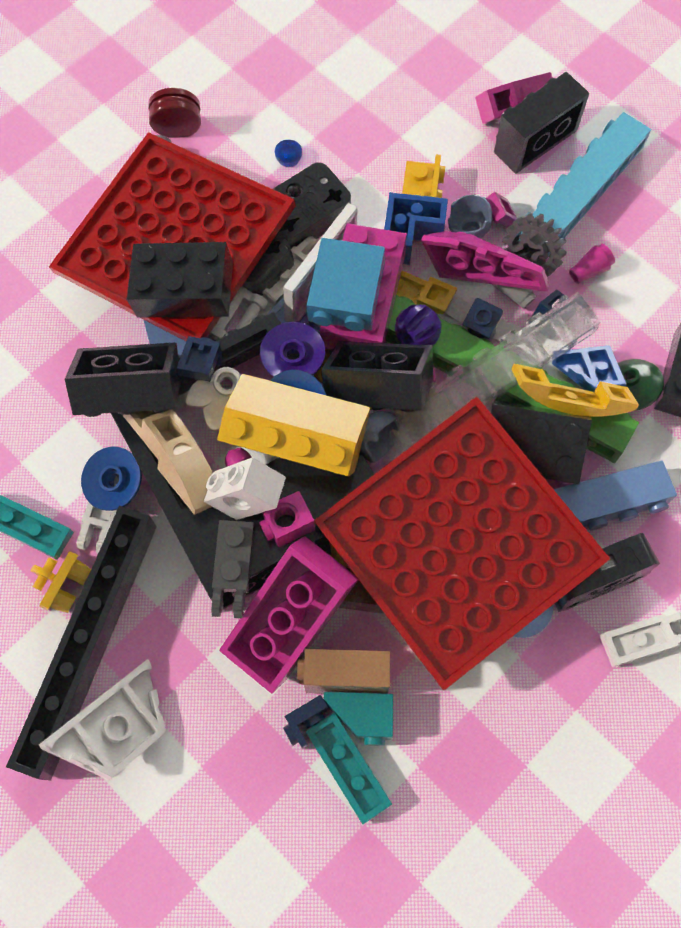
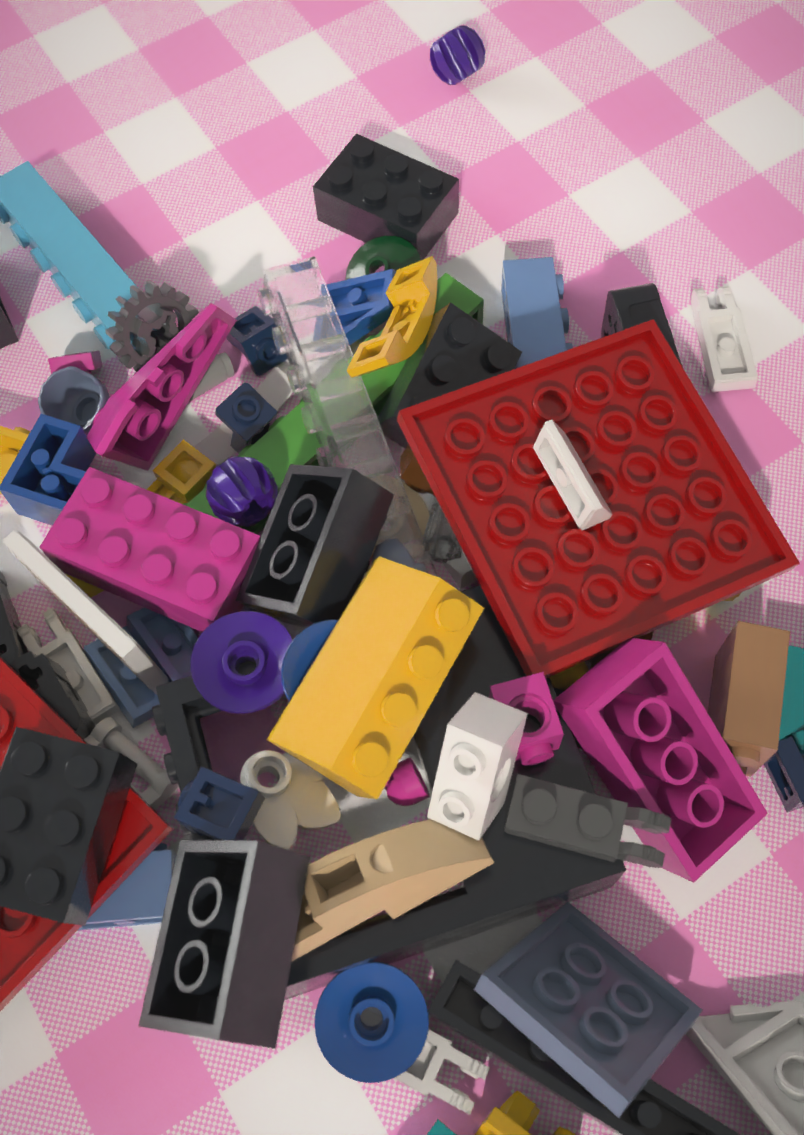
camera: 75 degrees left, 5 degrees down
(136, 595) = (589, 1005): none -> sand blue plate
(346, 284) = (157, 555): dark azure brick -> none
(459, 518) = (570, 477): none -> white slope
(593, 263) = (196, 276): dark pink cone -> none

